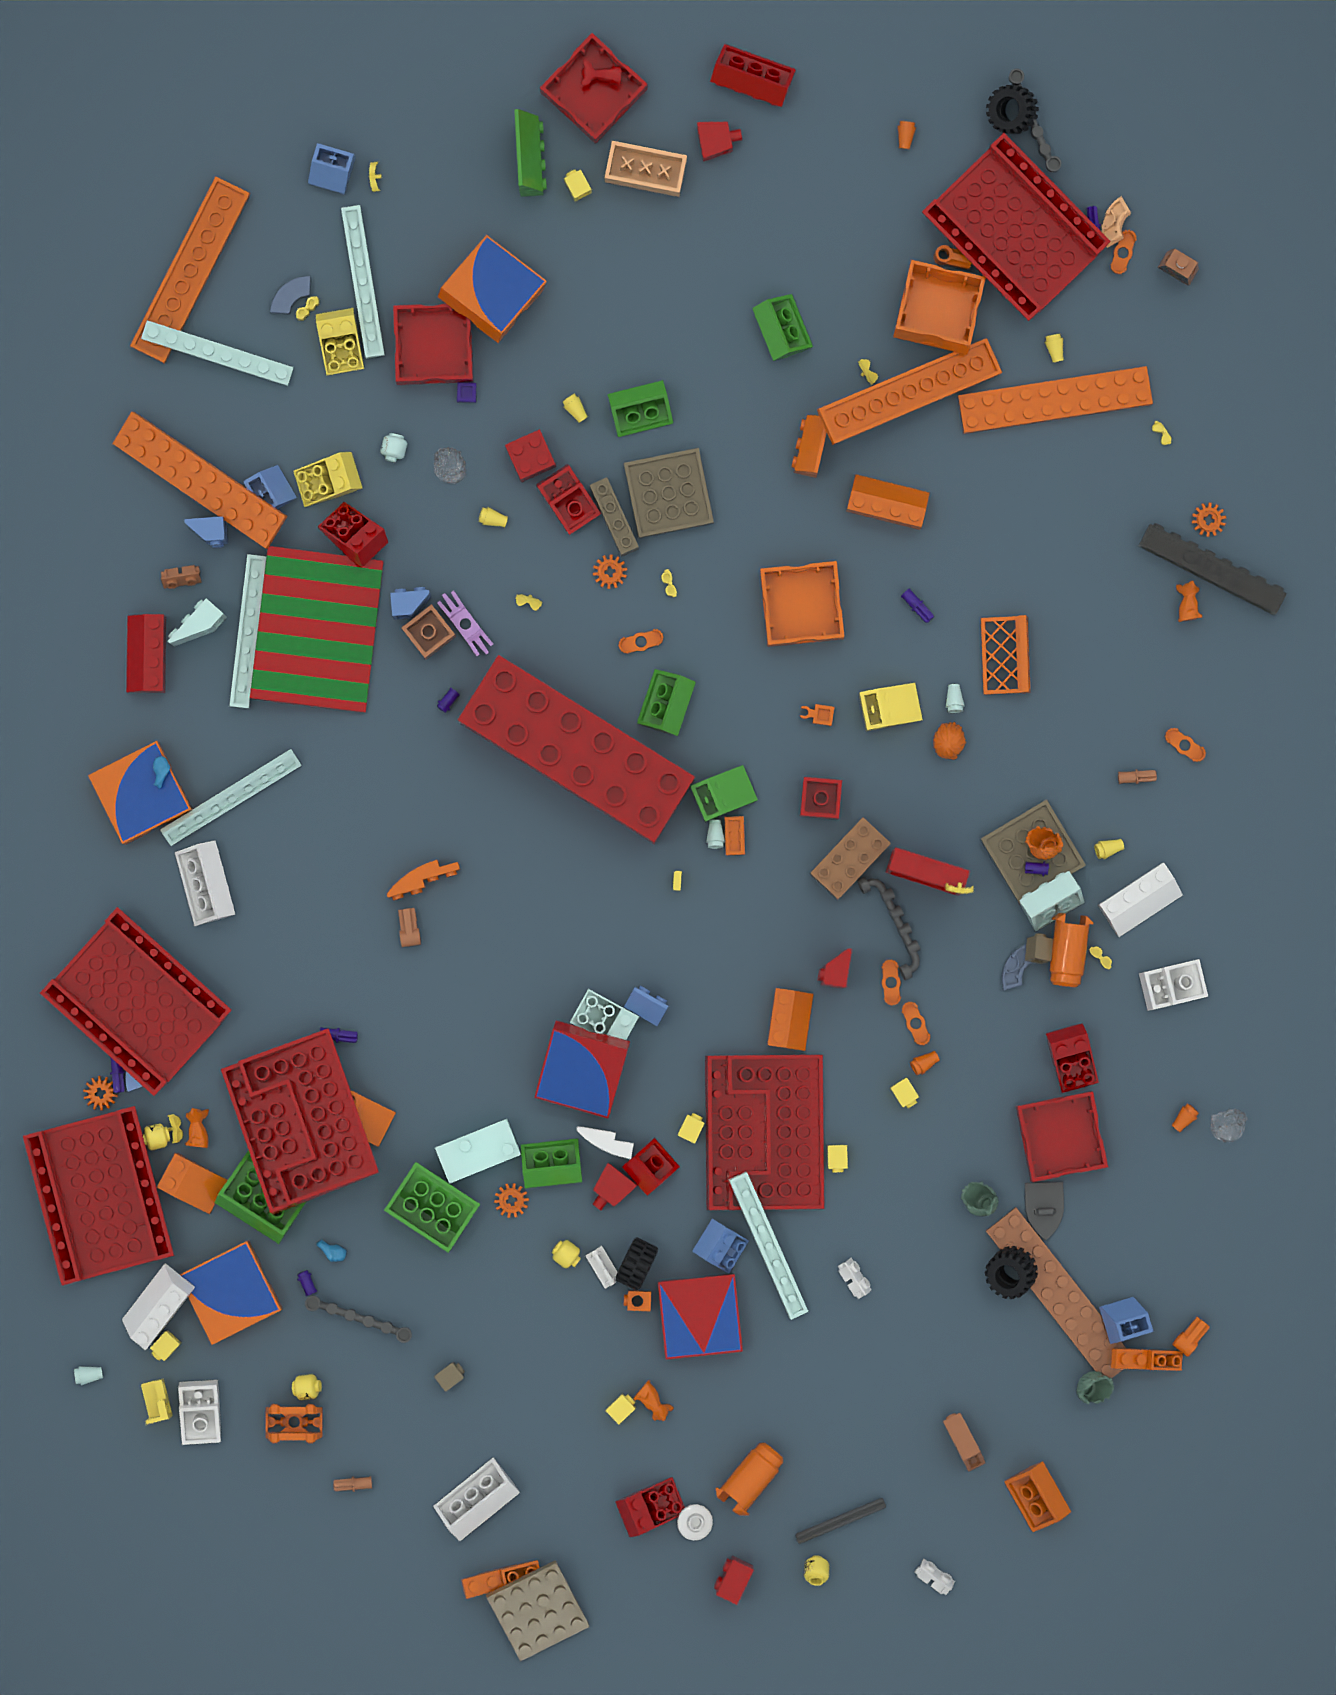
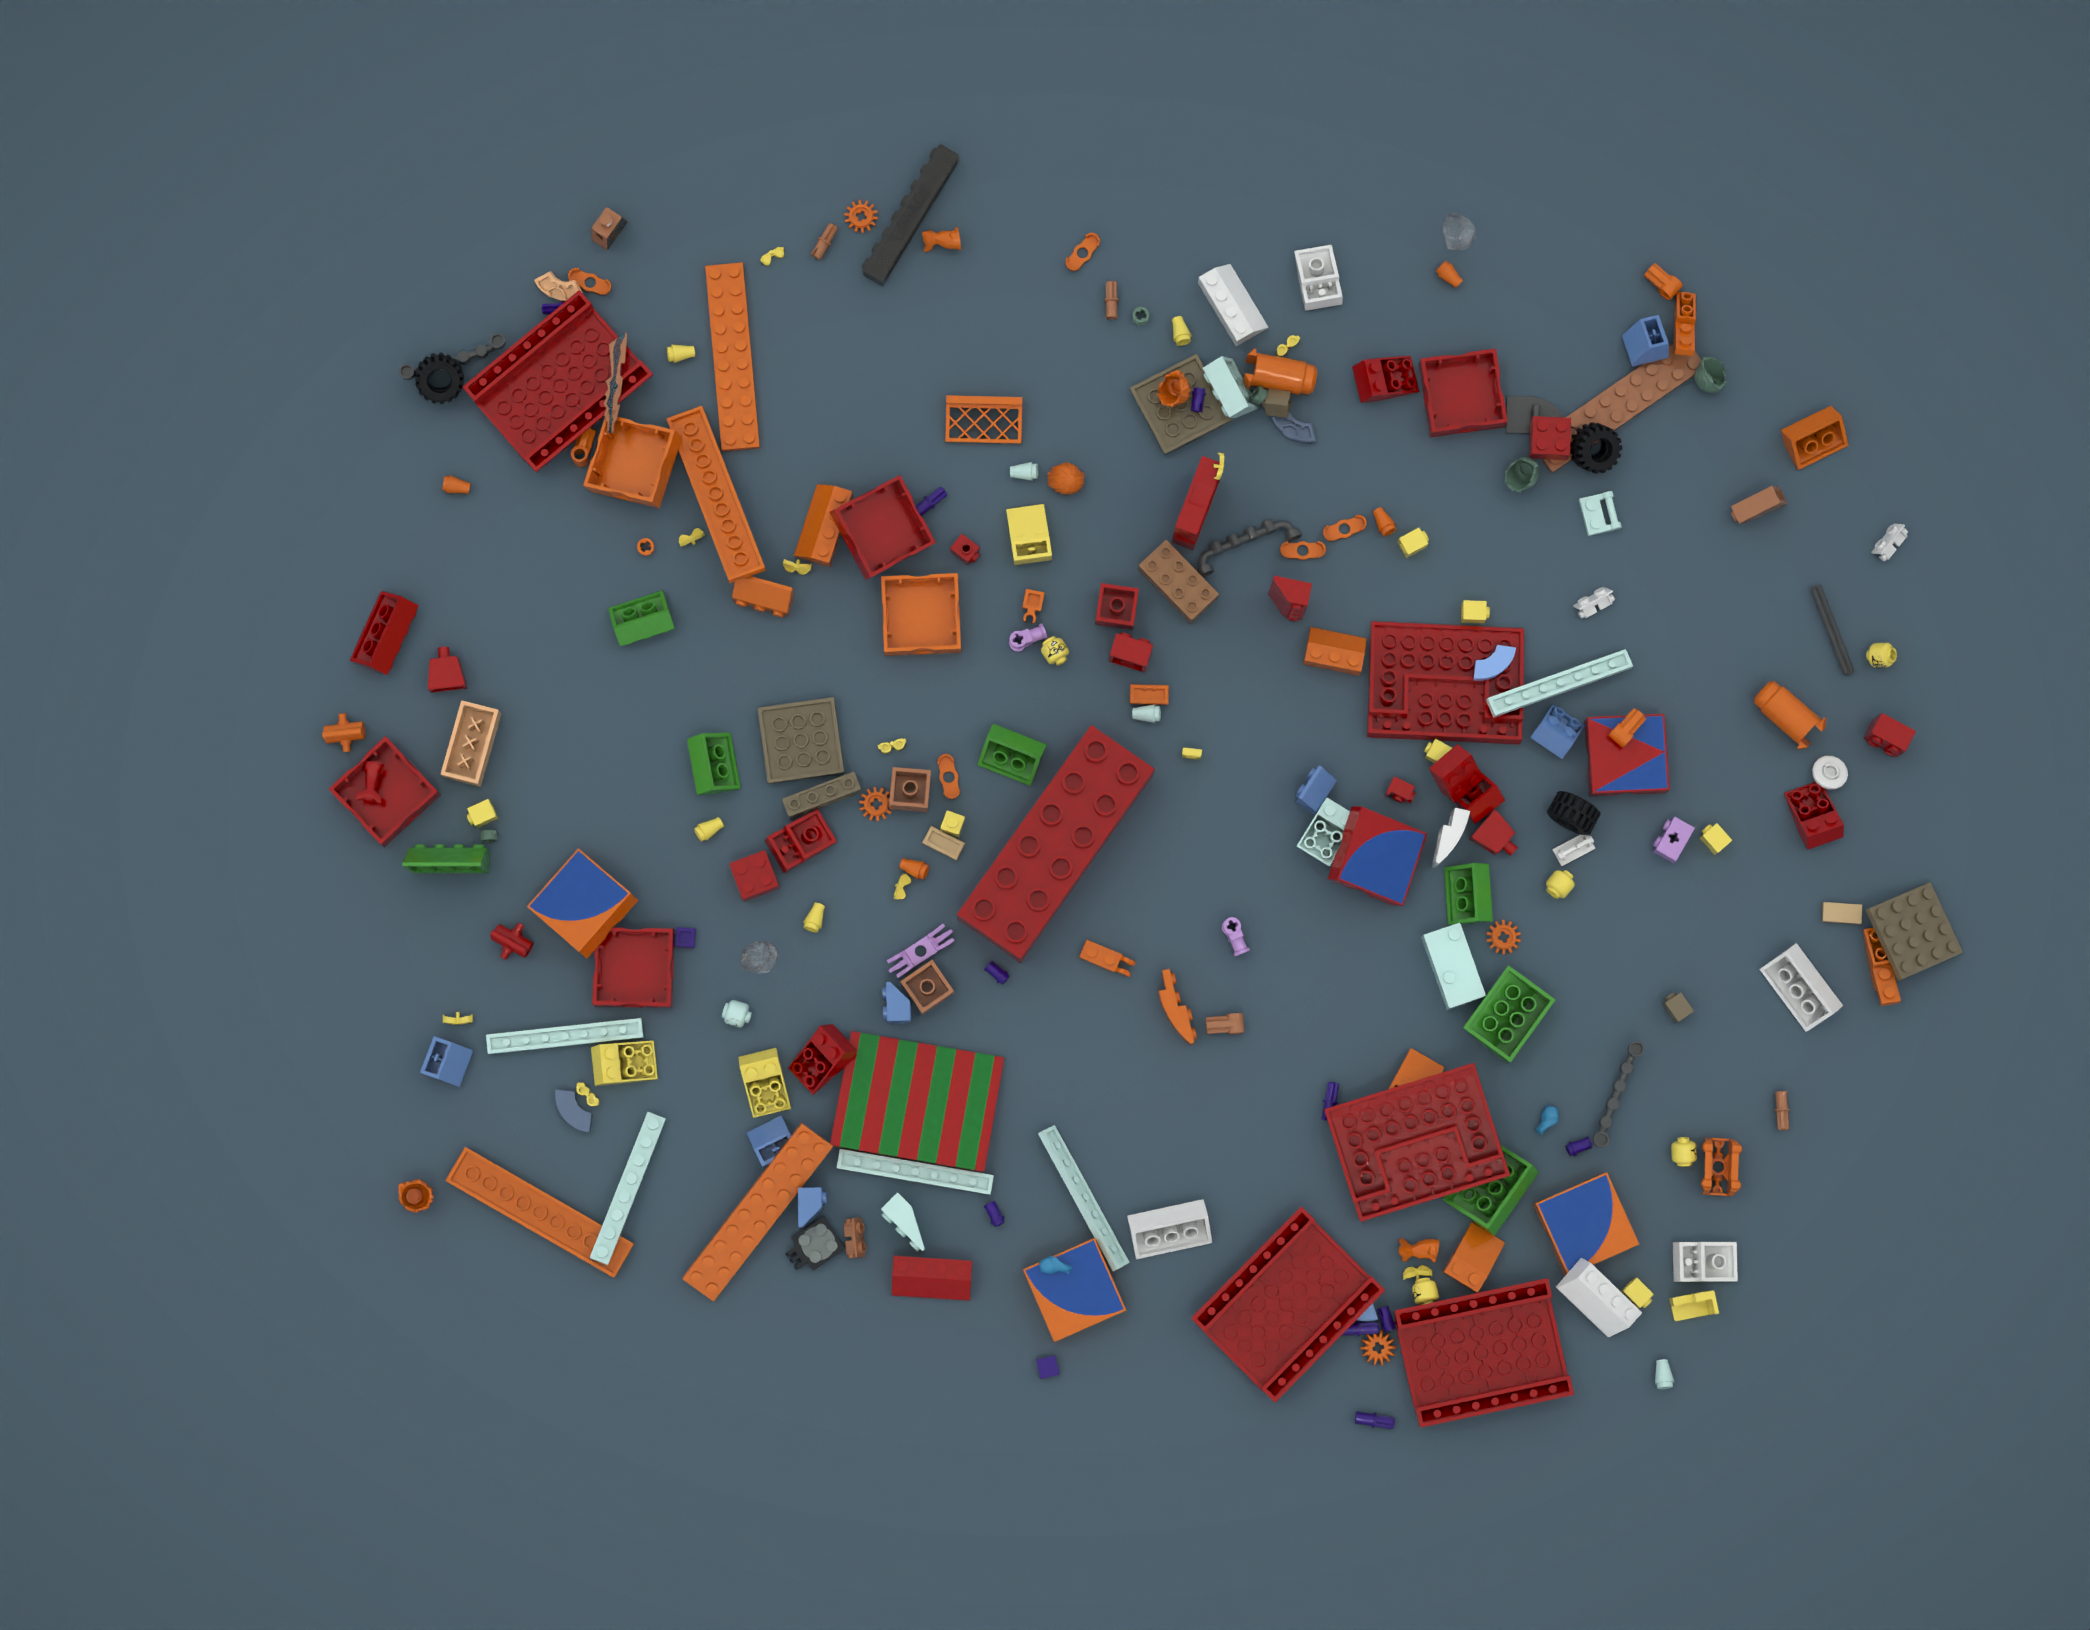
camera: 90 degrees left, 5 degrees down
(29, 1093) = (1374, 1420): none -> dark purple axle
(65, 771) = (1047, 1367): none -> dark purple tile
(129, 1099) = (1386, 1319): none -> dark purple pin
(172, 539) = (815, 1245): none -> piece
(198, 148) = (415, 1195): none -> orange hair
(211, 711) = (994, 1214): none -> dark purple pin
(453, 223) = (512, 940): none -> red pin
(469, 805) = (1105, 958): none -> orange hinge
(495, 933) = (1235, 936): none -> lavender connector
(547, 613) = (915, 868): none -> orange cone
(553, 1538) = (1841, 913): none -> tan tile
(555, 192) = (488, 836): none -> sand green axle
(574, 640) = (943, 843): none -> tan tile
(593, 647) = (952, 823): none -> light yellow brick
(606, 1366) = (1682, 833): none -> lavender brick
(624, 603) = (910, 789): none -> nougat brick
(645, 1306) = (1612, 807): orange brick -> none
(649, 1397) = (1705, 809): orange animal -> none
(650, 44) = (344, 732): none -> orange pin
(651, 1091) = (1400, 791): none -> red brick
(670, 1144) = (1456, 773): none -> red brick
(721, 1311) = (1625, 730): none -> orange piece
(723, 793) = (1107, 702): bright green slope -> none
(772, 739) = (1054, 650): none -> light yellow head
(774, 814) = (1131, 652): none -> red brick
(784, 1180) = (1495, 664): none -> light blue tile
(785, 712) = (1027, 637): none -> lavender connector
(842, 482) = (800, 568): none -> light yellow piece
(861, 325) = (647, 552): none -> orange bush
(870, 644) = (965, 550): none -> red brick
(886, 559) = (882, 527): none -> red tile
(943, 1275) = (1593, 514): none -> light aqua plate
(1017, 283) = (614, 383): none -> nougat sword
(1018, 1225) = (1550, 438): none -> red brick
(1045, 929) = (1258, 395): none -> sand green axle
(1127, 804) = (1143, 321): none -> sand green bush
(1179, 484) = (824, 241): none -> nougat axle

